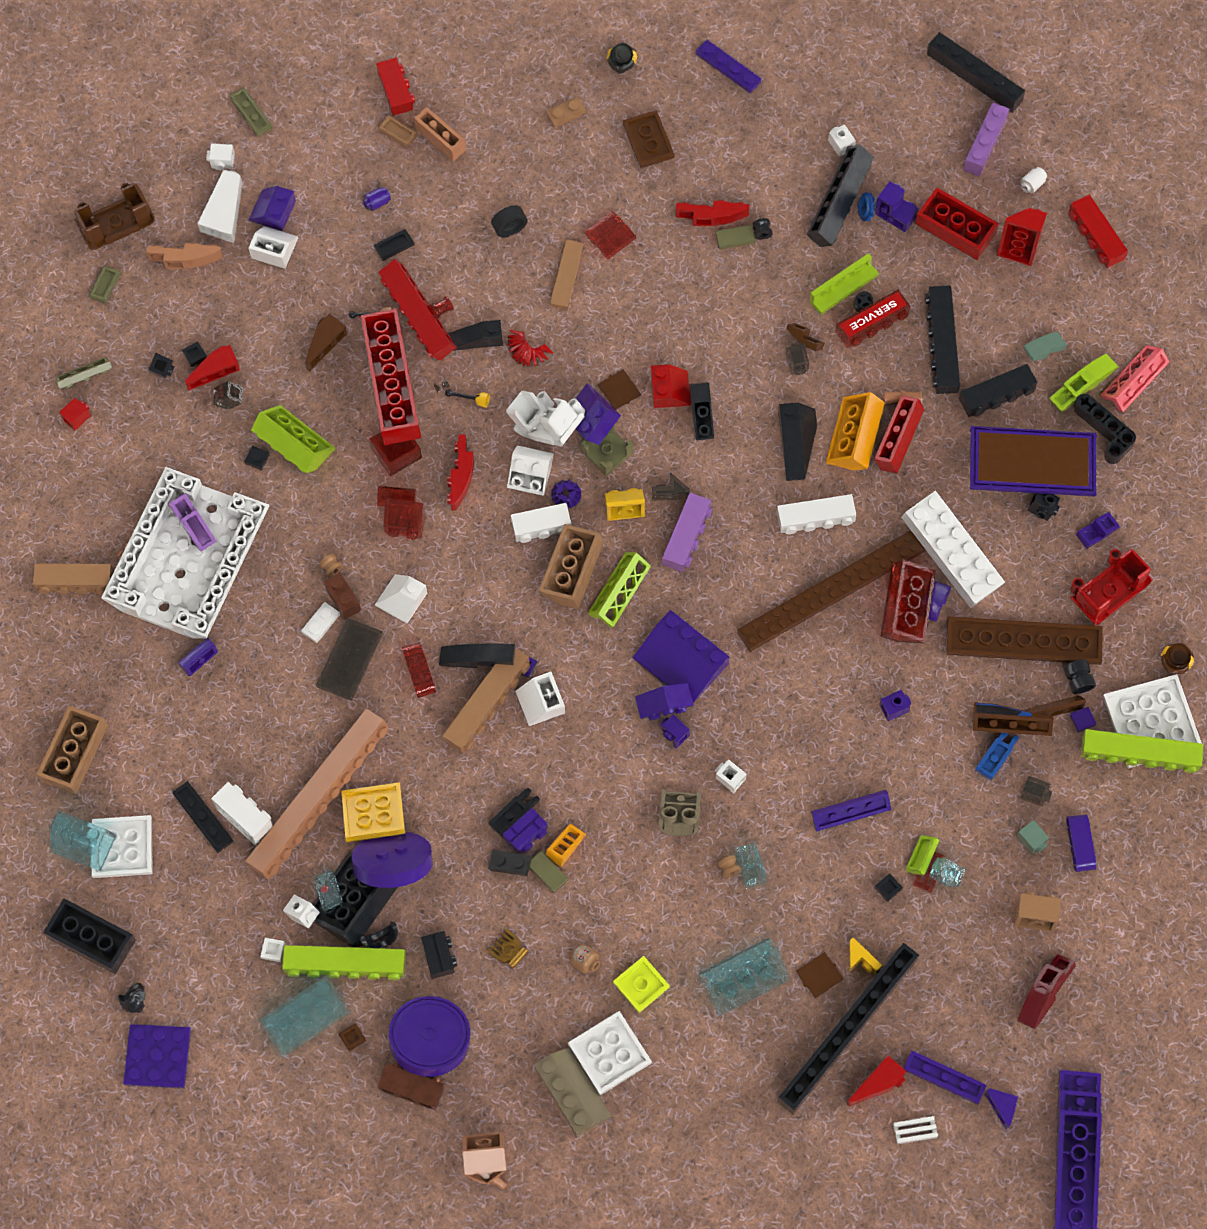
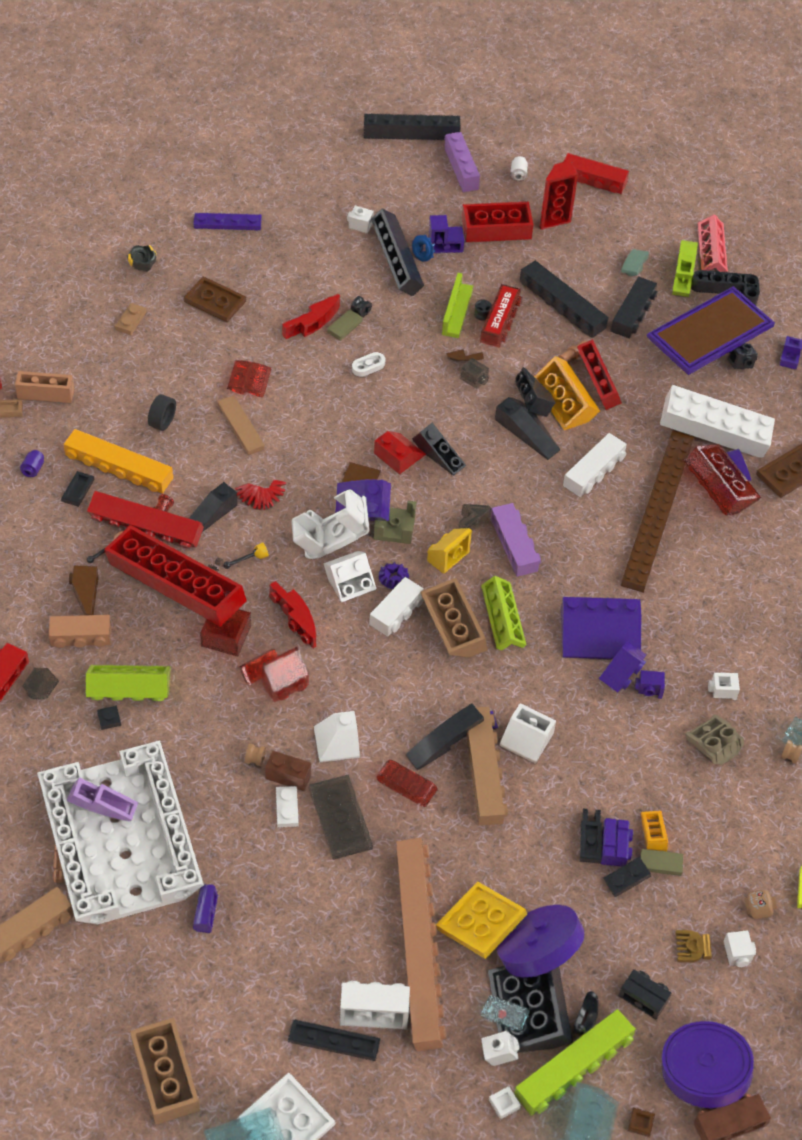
camera: 45 degrees left, 15 degrees down
(292, 372) = (80, 630): none -> nougat brick
(442, 242) = (118, 461): none -> light orange brick
(537, 978) = (739, 948): none -> white brick
(719, 288) = (366, 366): none -> white plate
(828, 414) = (535, 395): none -> black slope
(895, 705) = (785, 554): dark purple brick -> none

